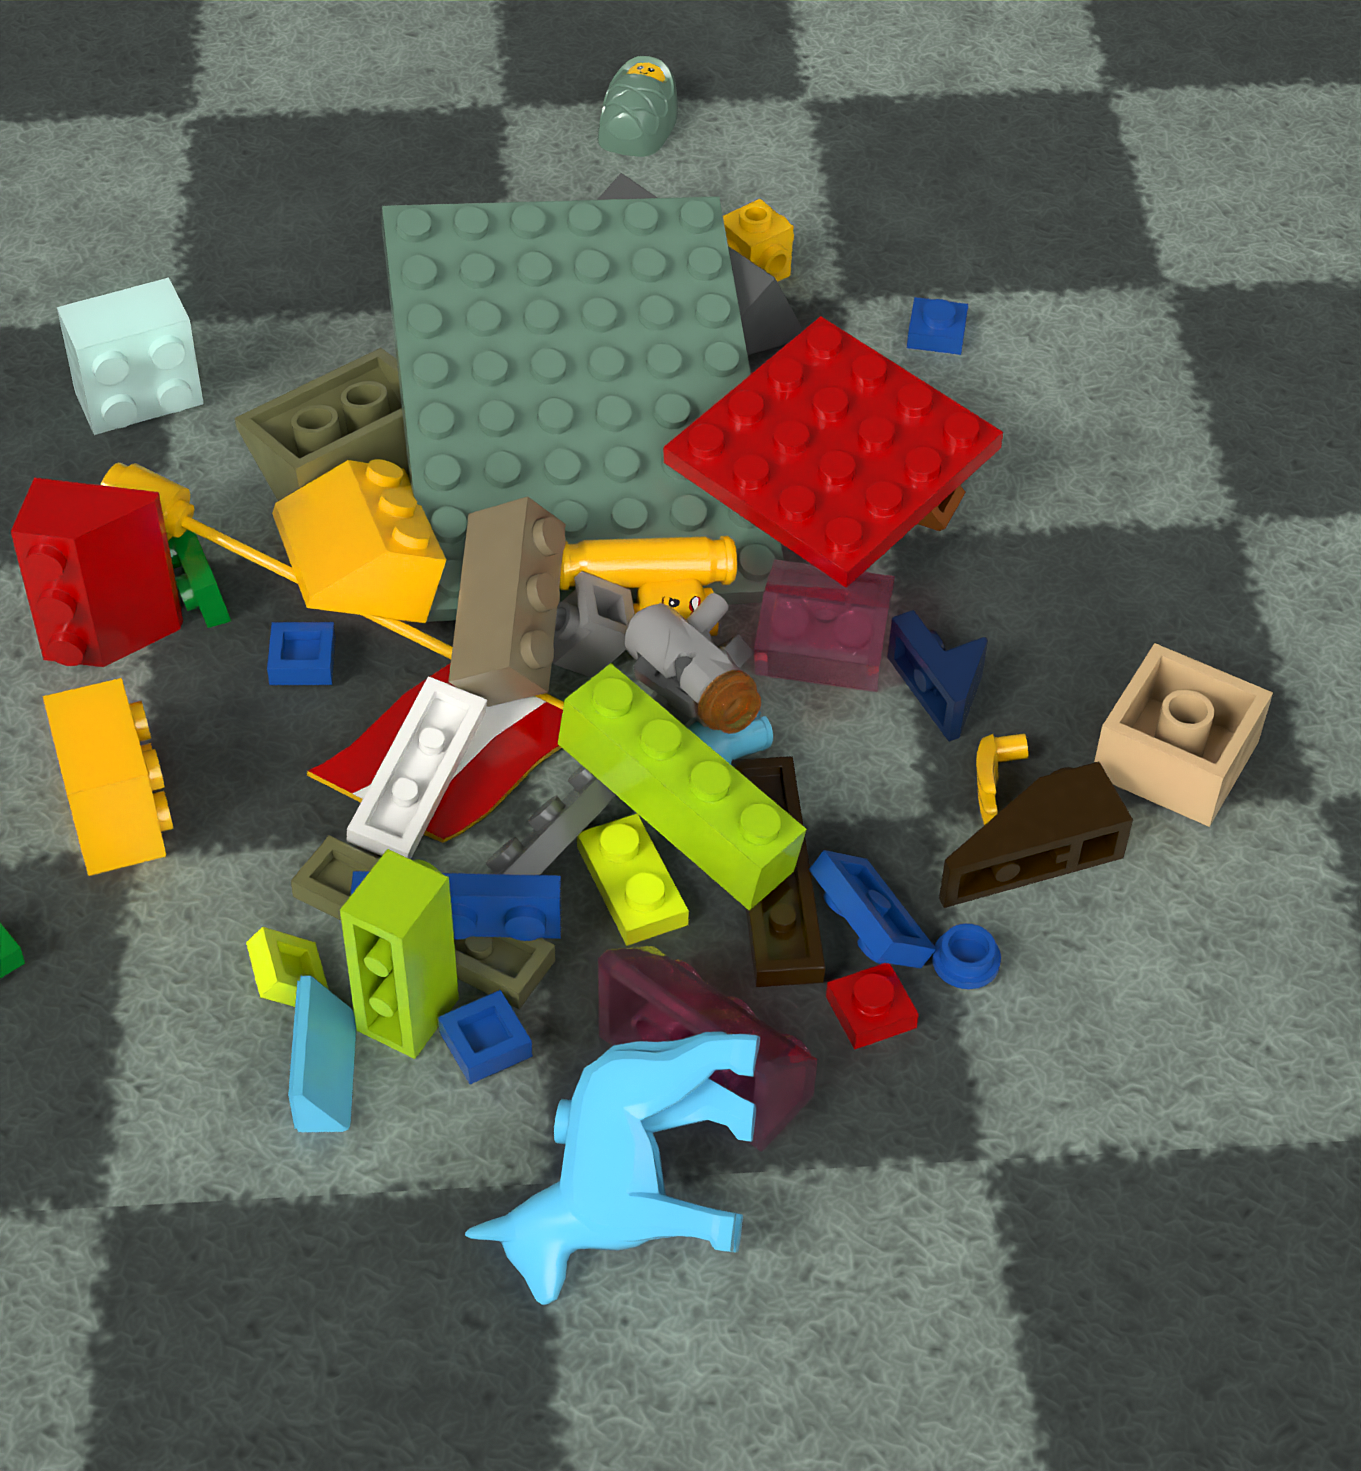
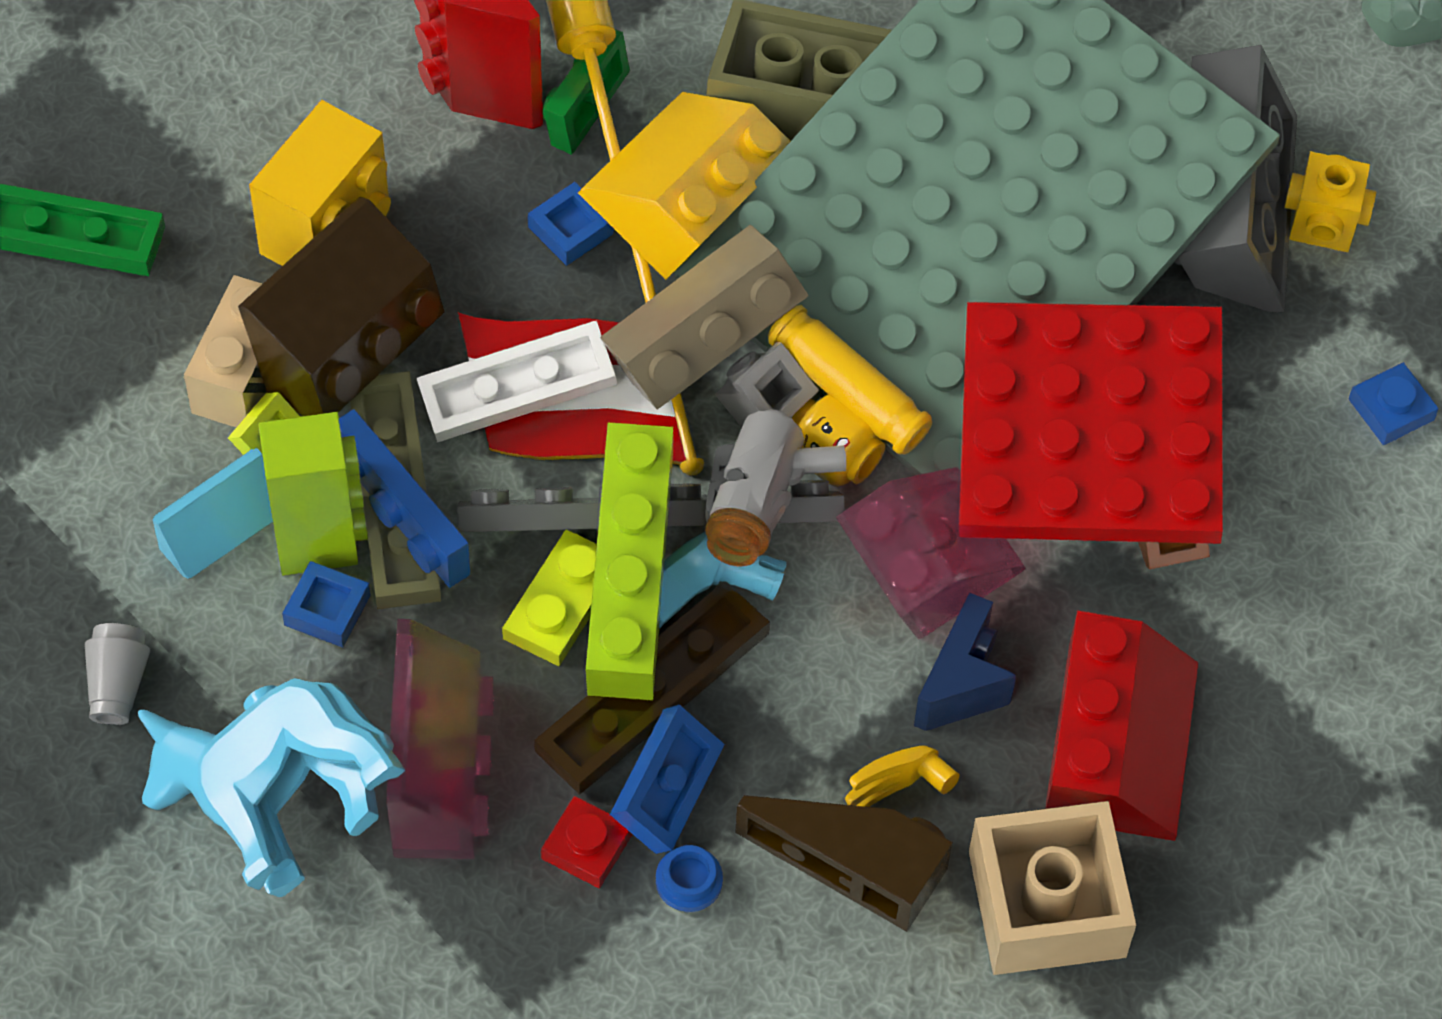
camera: 50 degrees right, 10 degrees up
(186, 936) = (223, 372): none -> tan brick
(244, 831) = (340, 311): none -> dark brown slope
(396, 1235) = (114, 671): none -> light grey cone
(1058, 623) = (1124, 724): none -> red slope

